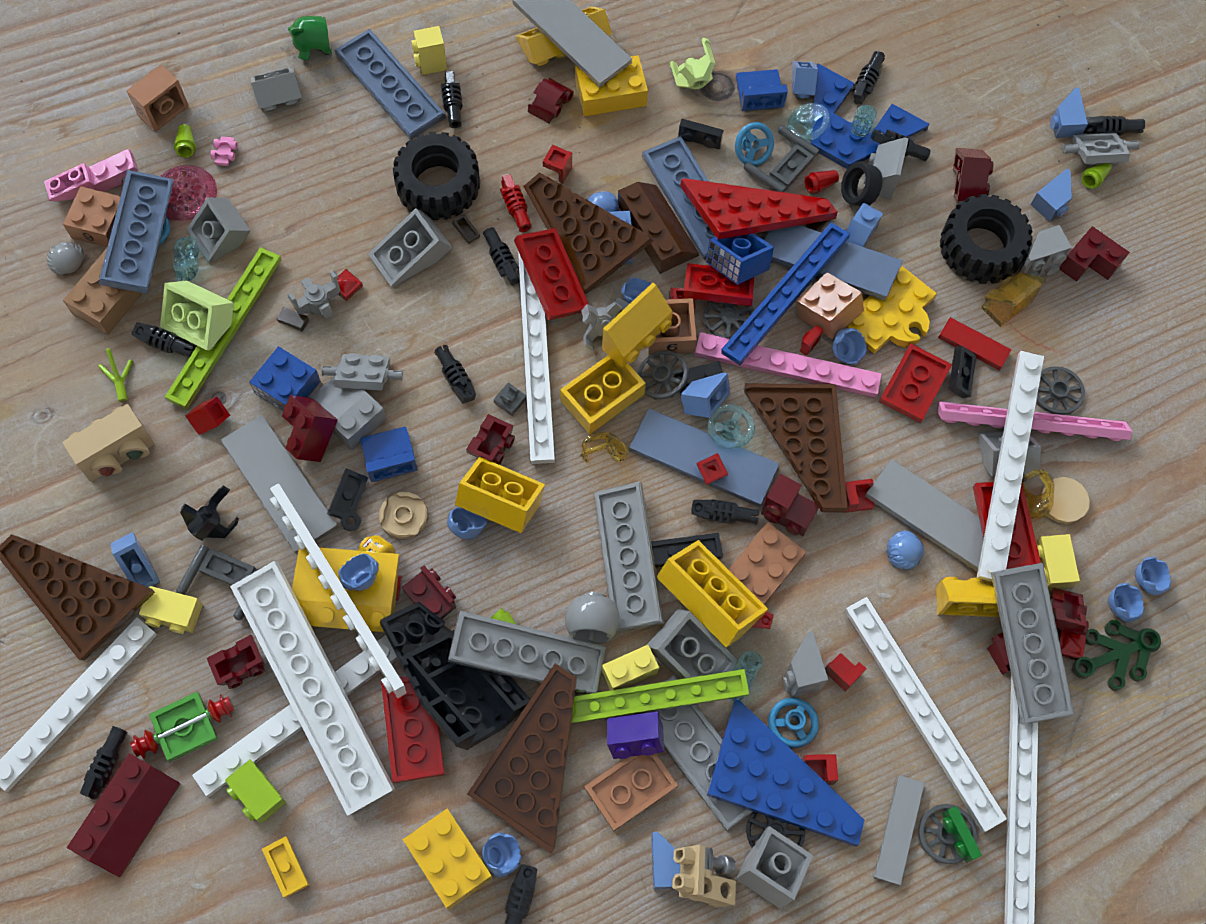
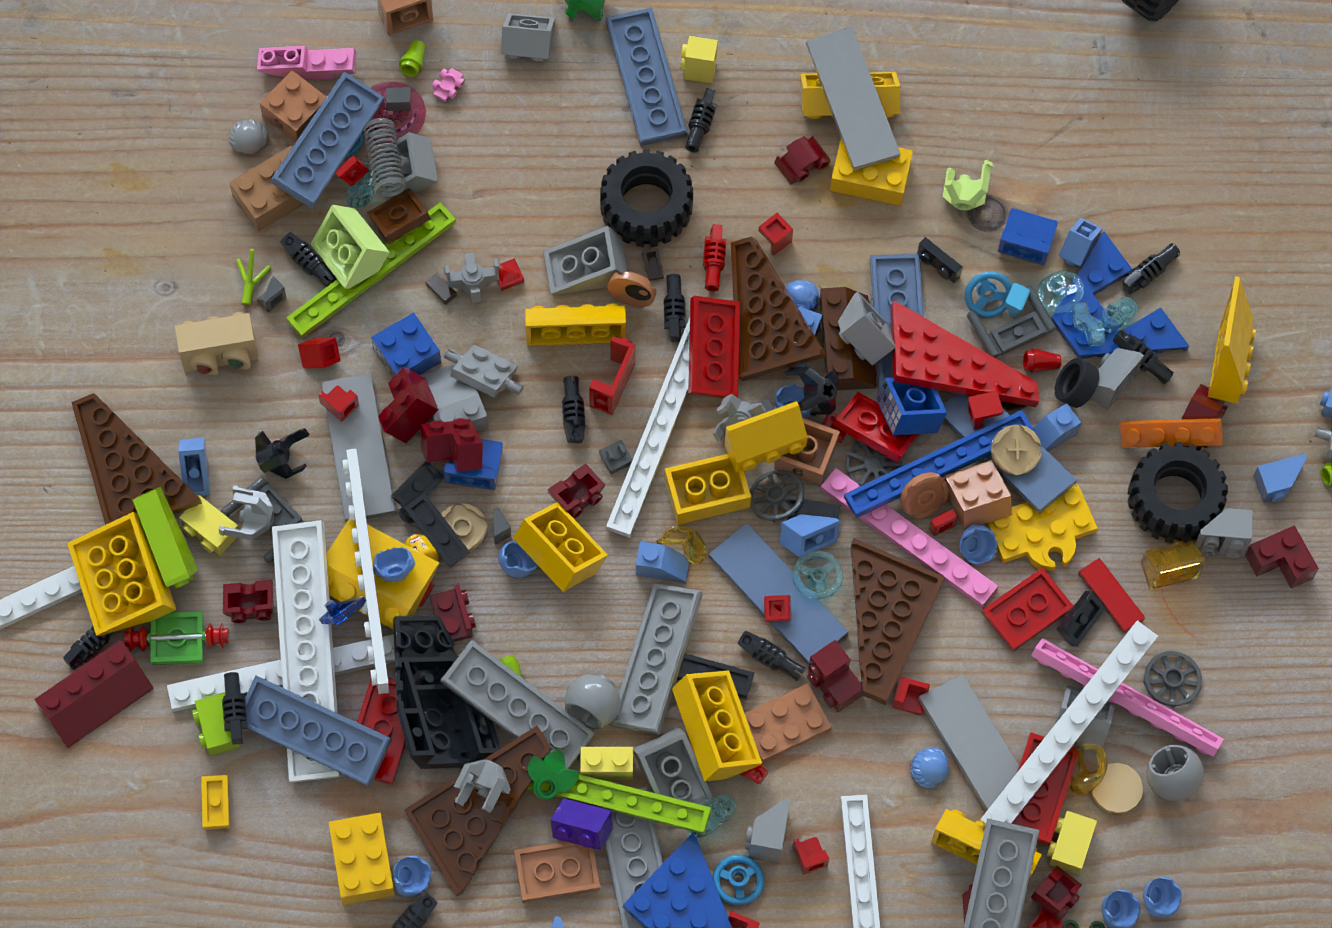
camera: 25 degrees right, 0 degrees up
(104, 691) = (120, 576): none -> yellow slope
(133, 639) = (165, 538): none -> lime slope
(144, 382) = (273, 296): none -> dark grey slope
(170, 248) = (352, 171): none -> red tile
(185, 209) = (393, 180): none -> light grey piece
(186, 176) = (398, 98): none -> dark grey slope
(211, 583) = (255, 517): none -> light grey piece
(229, 271) = (399, 215): none -> reddish brown plate
(244, 450) = (339, 402): none -> red panel
(266, 770) = (234, 708): none -> black hinge
(328, 637) = (341, 611): none -> clear blue piece
(350, 759) = (315, 731): none -> sand blue tile
(362, 442) = (452, 441): none -> dark red brick
(383, 526) = (437, 530): none -> black plate
(425, 302) = (574, 324): none -> yellow slope
(438, 498) = (502, 528): none -> dark grey slope
(459, 253) = (631, 289): none -> nougat tile
(477, 348) = (606, 397): none -> red panel
(532, 733) = (486, 778): none -> light grey piece
(588, 699) = (552, 771): none -> green plate
(592, 472) = (661, 563): none -> medium blue slope
(658, 271) = (816, 390): none -> black piece
(673, 208) = (865, 330): none -> light grey slope
(779, 139) = (1016, 299): none -> medium azure slope
(786, 323) = (924, 495): none -> nougat tile
(798, 232) = (983, 407): none -> red panel
(843, 255) = (1016, 449): none -> tan tile
(846, 135) = (1088, 324): none -> clear light blue piece
(955, 192) = (1159, 432): none -> orange plate
(970, 107) = (1233, 348): none -> yellow slope
(1110, 466) = (1175, 773): none -> light grey wheel

